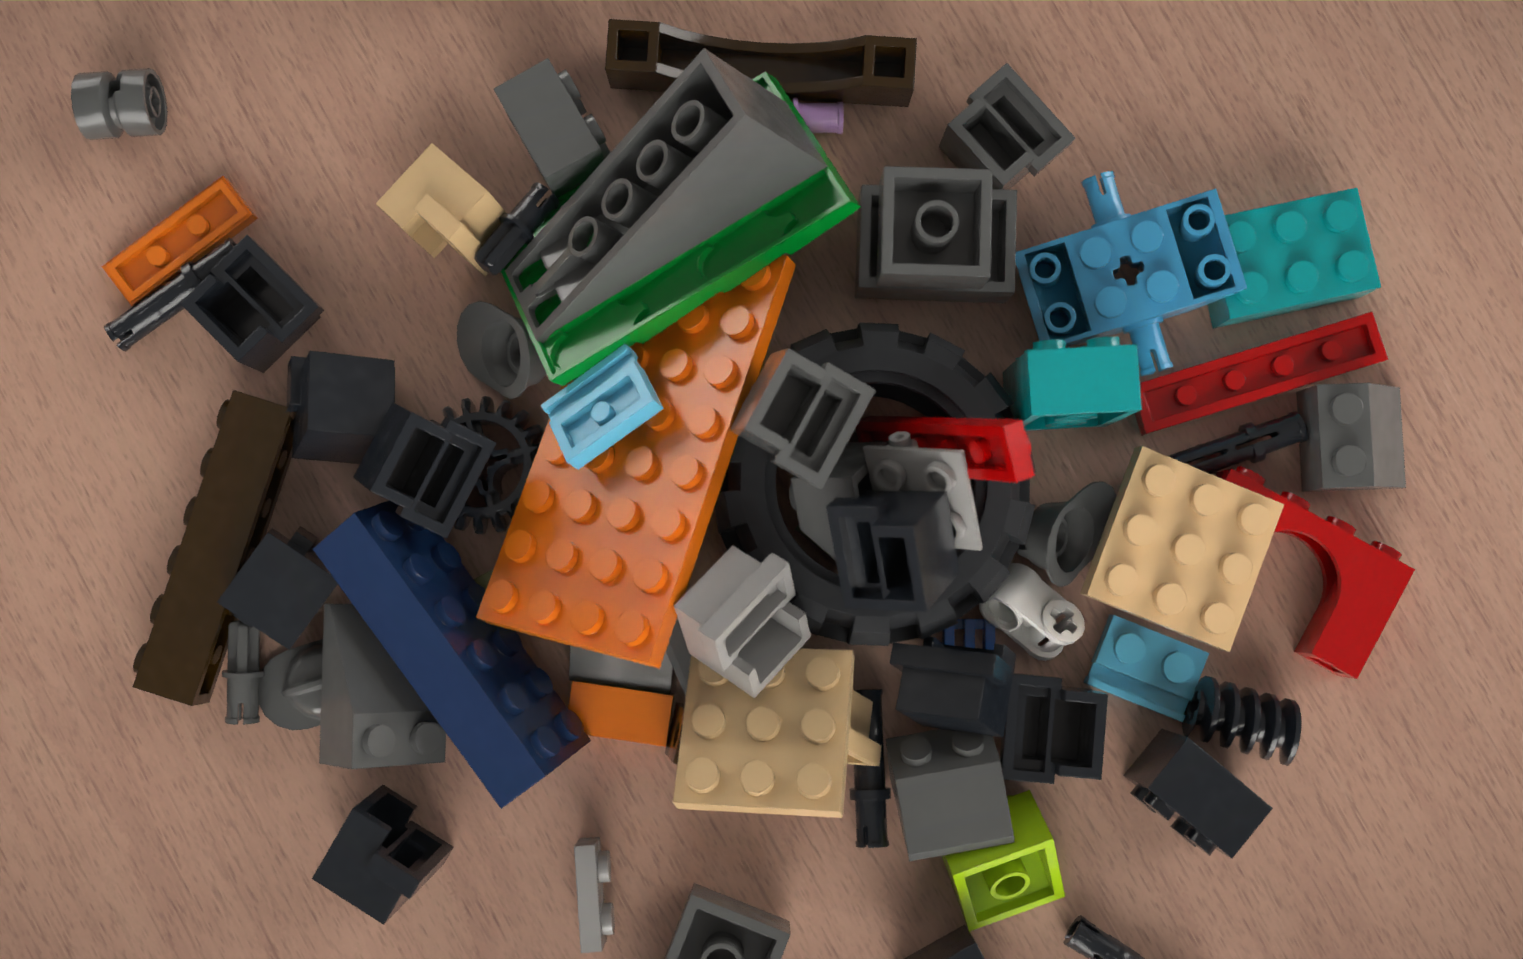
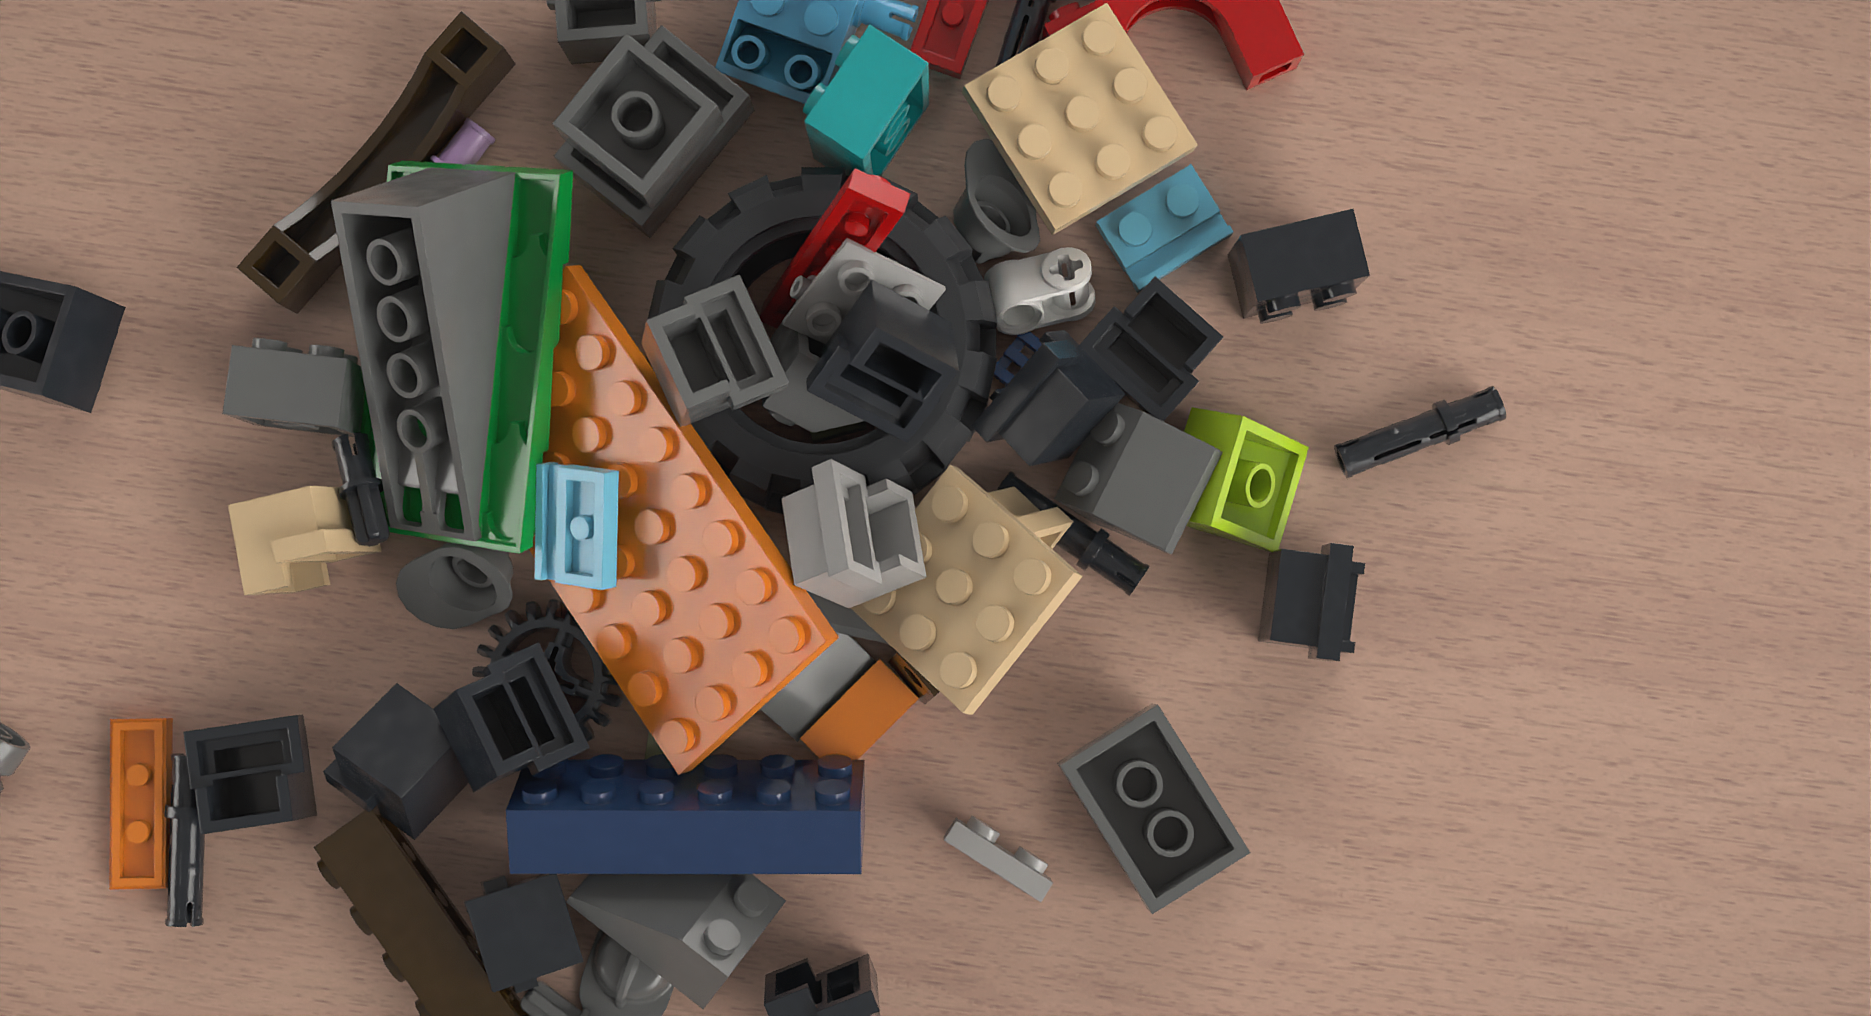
camera: 50 degrees left, 0 degrees up
(1244, 715) = (1267, 175): black piece -> none

